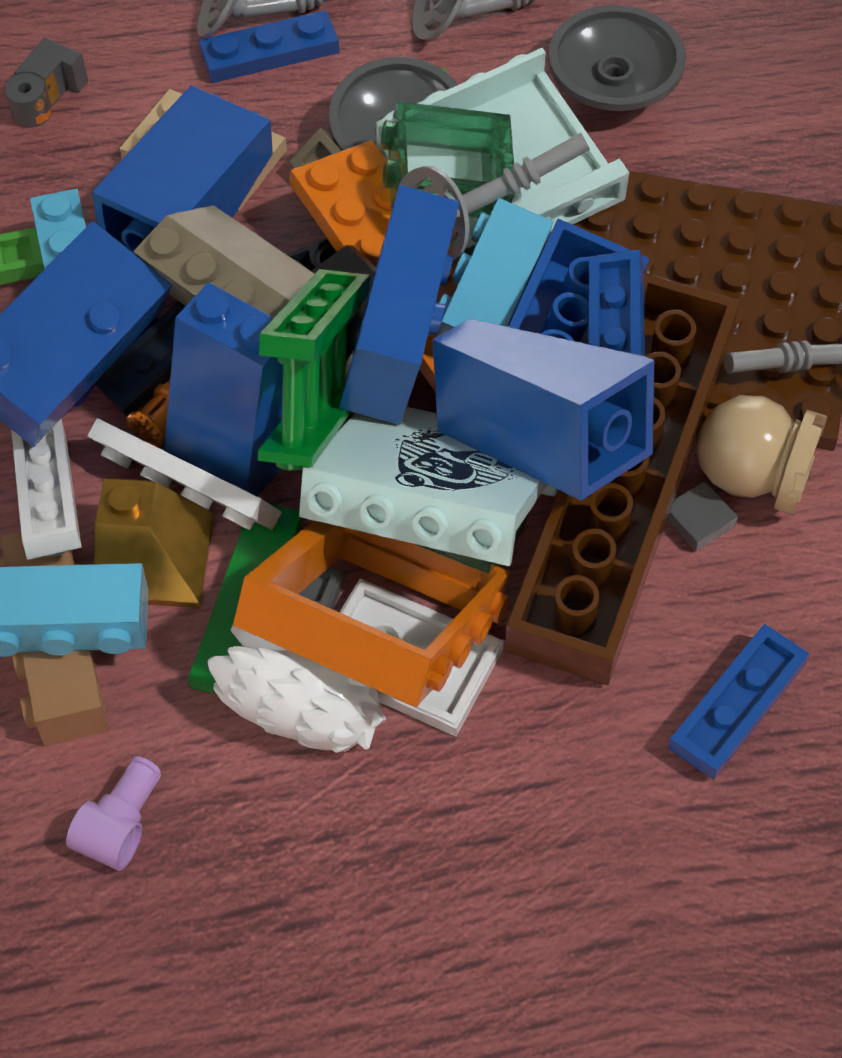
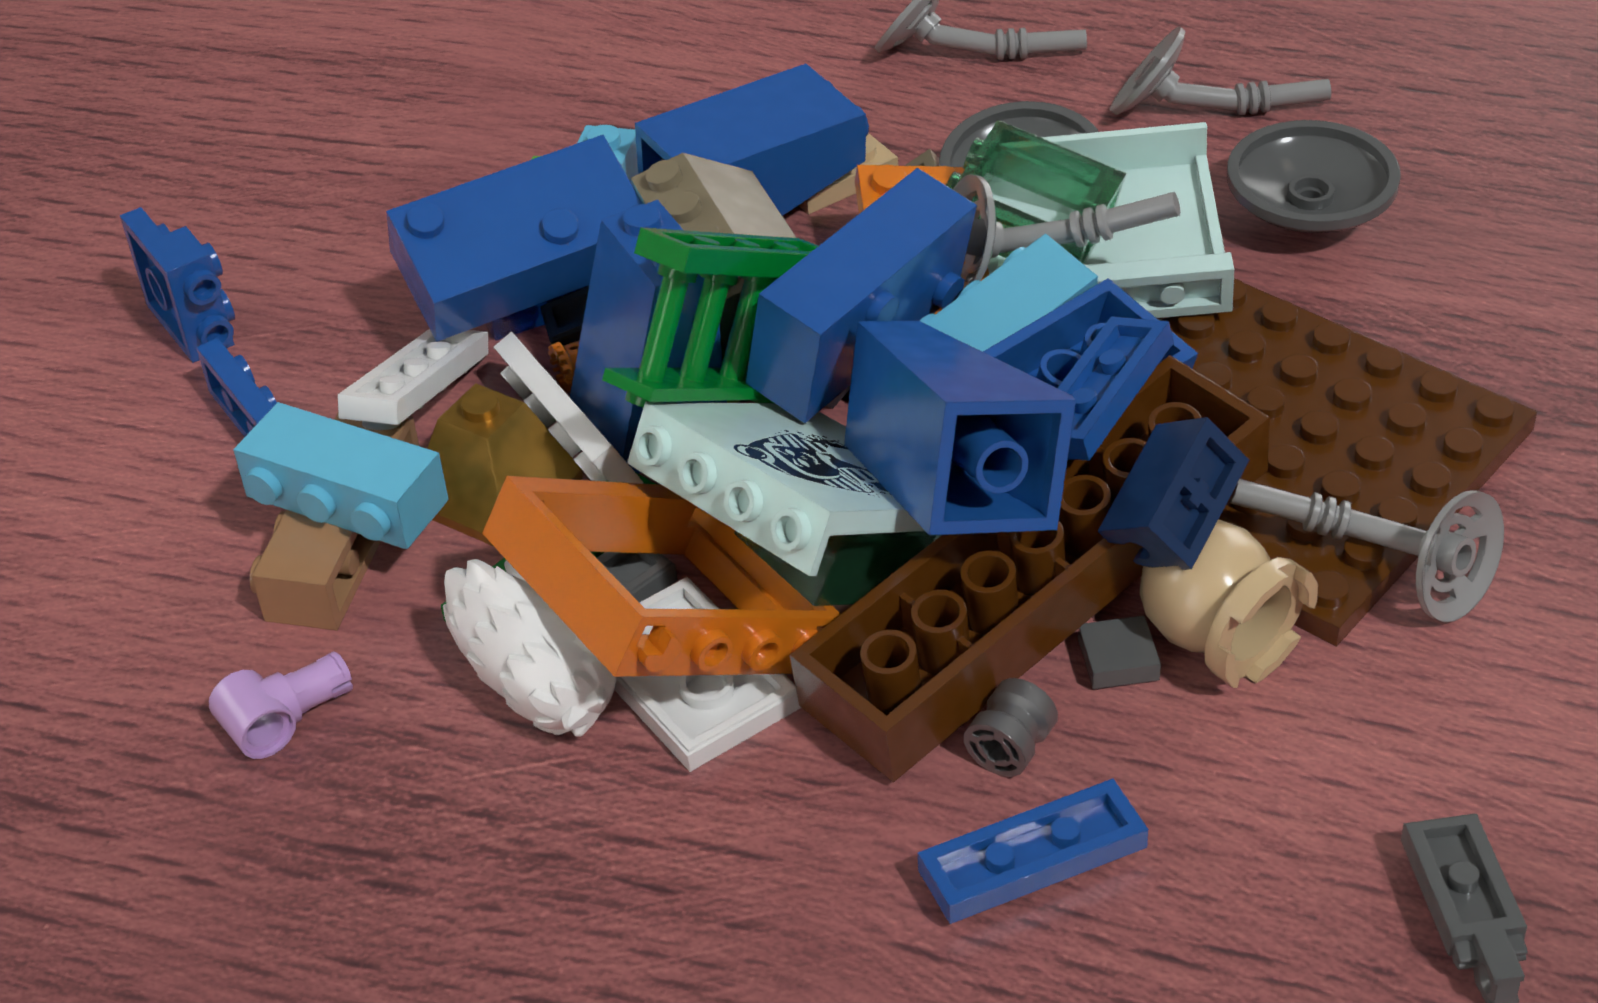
camera: 30 degrees right, 15 degrees down
(42, 82) = (685, 45): dark grey leg -> none
(269, 46) = (942, 76): blue plate -> none
(670, 610) = (1007, 731): none -> flat silver wheel
(717, 393) = (1175, 493): none -> dark blue hinge

